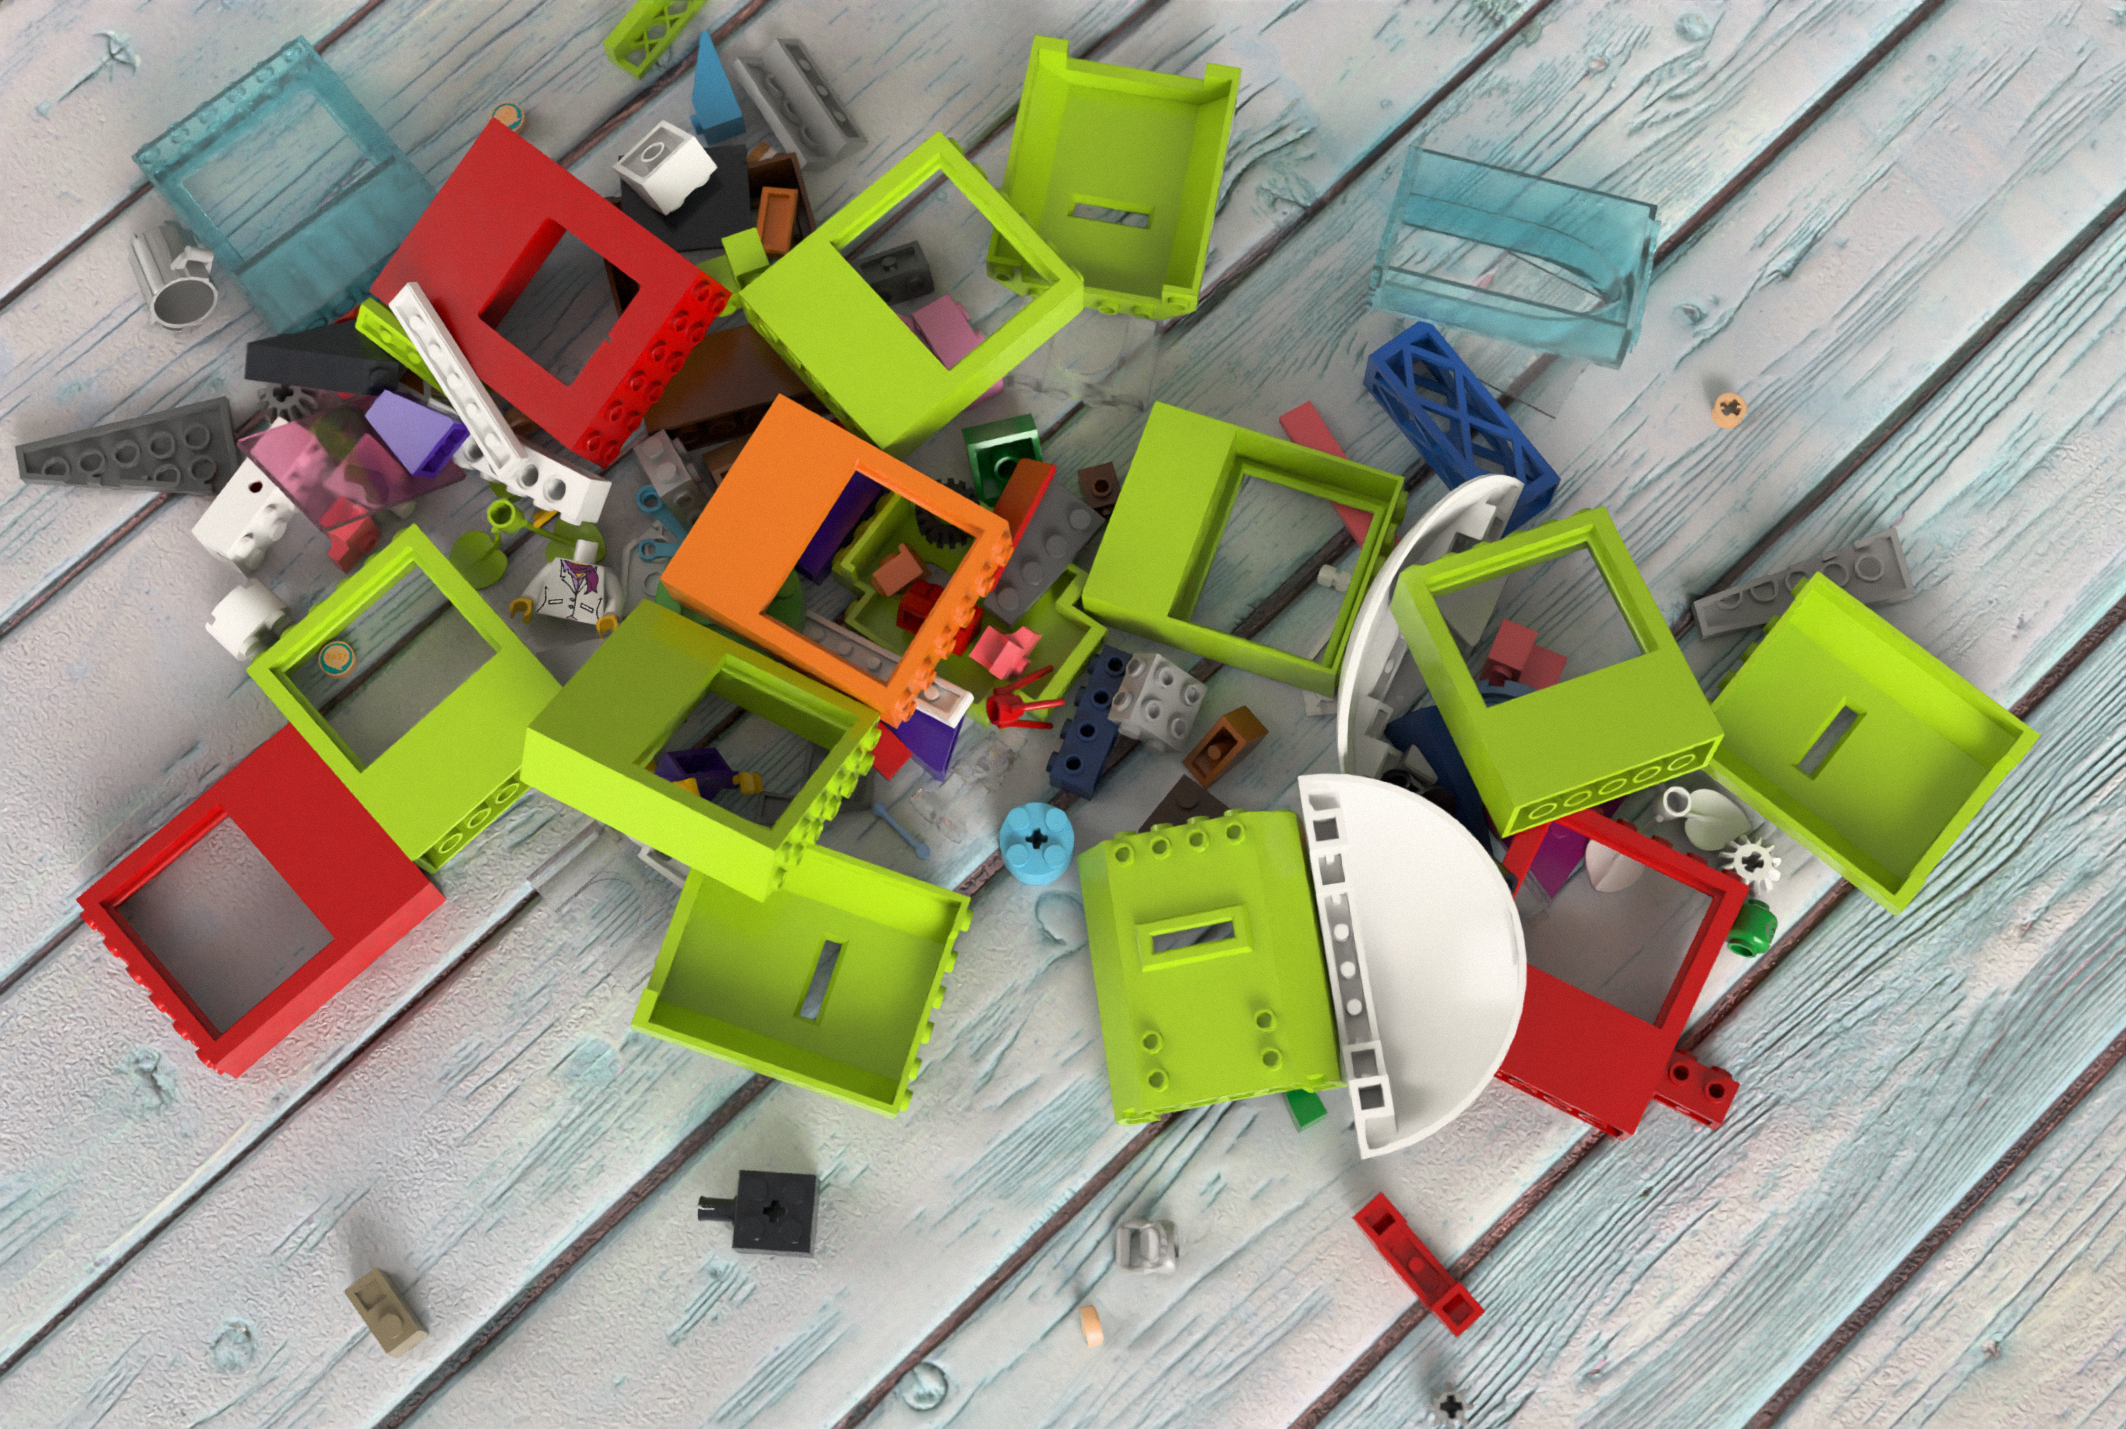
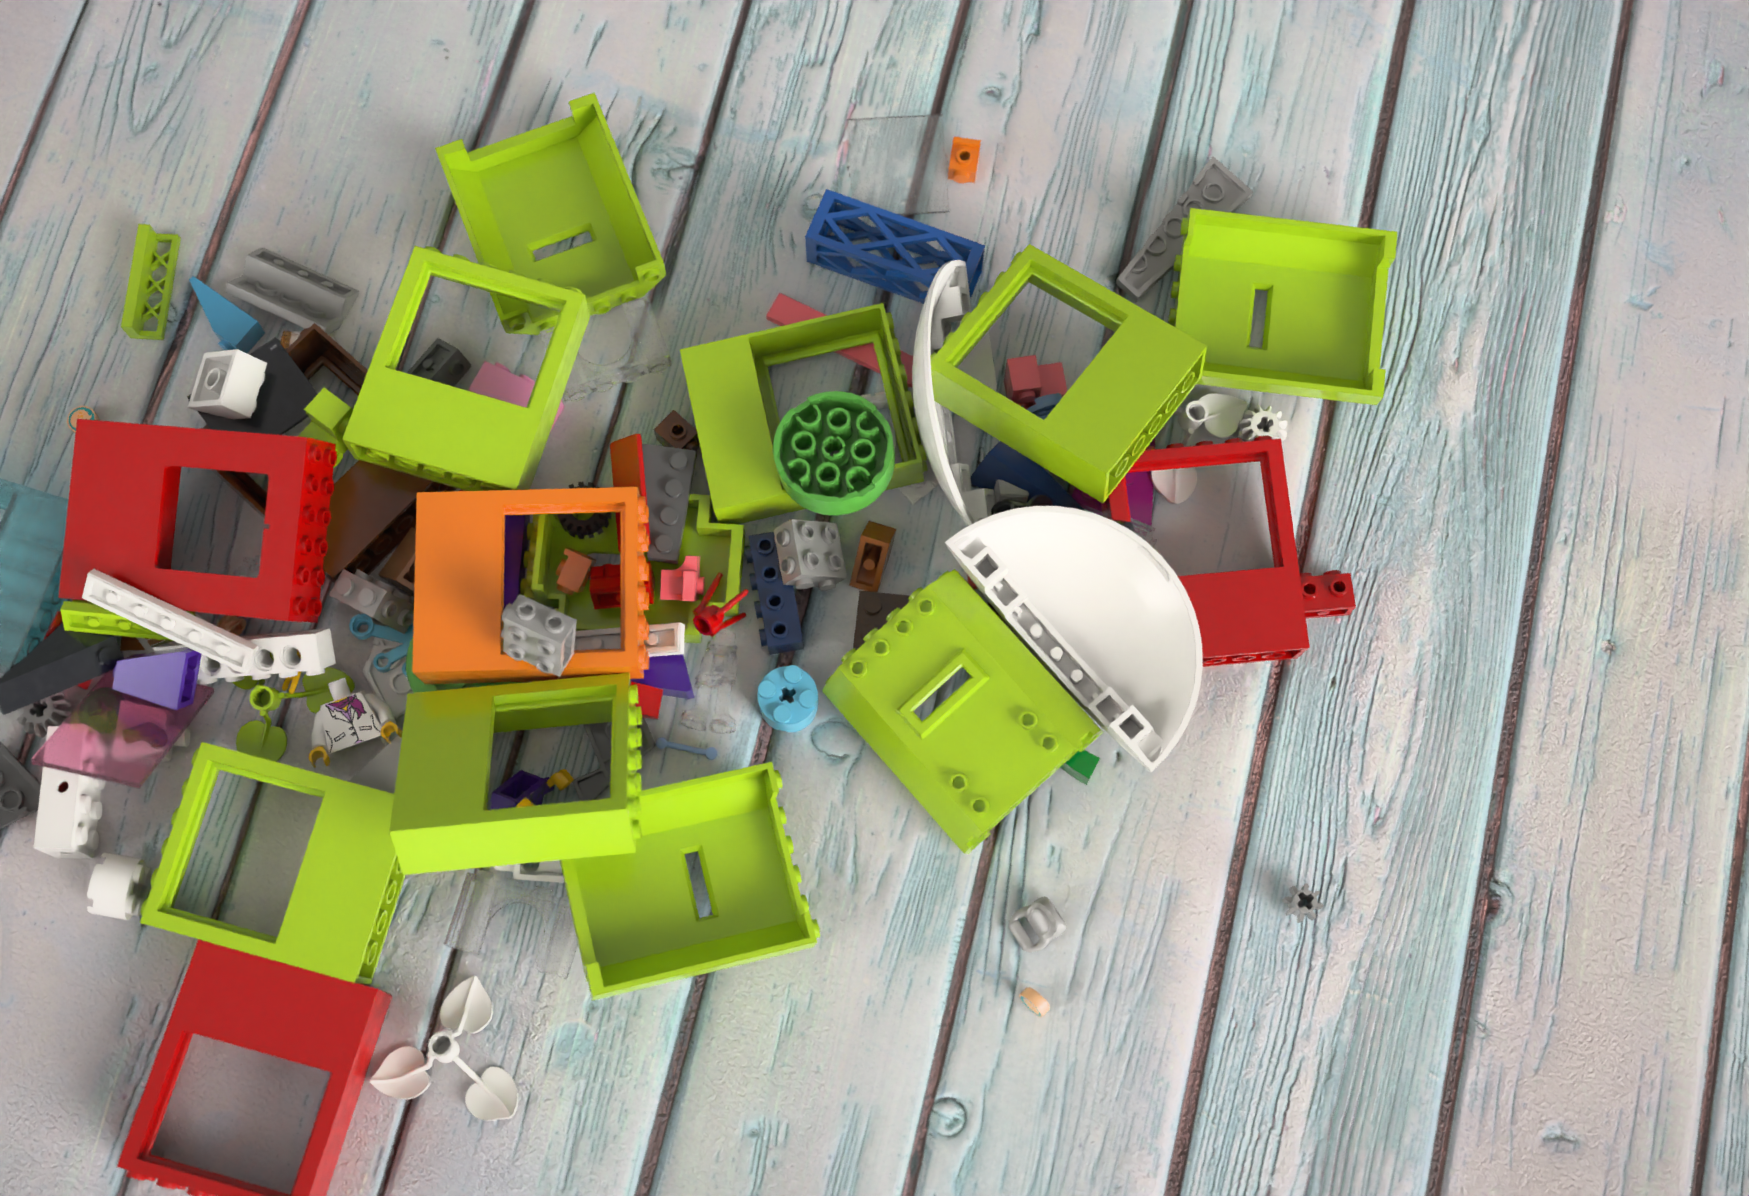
camera: 35 degrees left, 0 degrees up
(337, 660) = (202, 875): light nougat tile -> none
(352, 542) = (159, 786): coral brick -> none
(411, 981) = (404, 1073): none -> white plant
(756, 1197) = (764, 1084): black brick -> none
(777, 220) = (332, 375): orange tile -> none
(804, 617) = (538, 635): none -> light grey brick
(995, 452) = (588, 449): green slope -> none
(1239, 645) = (851, 476): none -> bright green brick
(1417, 1265) = (1222, 824): red slope -> none
(1581, 229) = (880, 78): clear light blue panel -> none
(1604, 384) = (964, 160): none -> orange brick
(1731, 420) = (1065, 143): light nougat bush -> none
(1752, 929) = (1296, 468): green head -> none

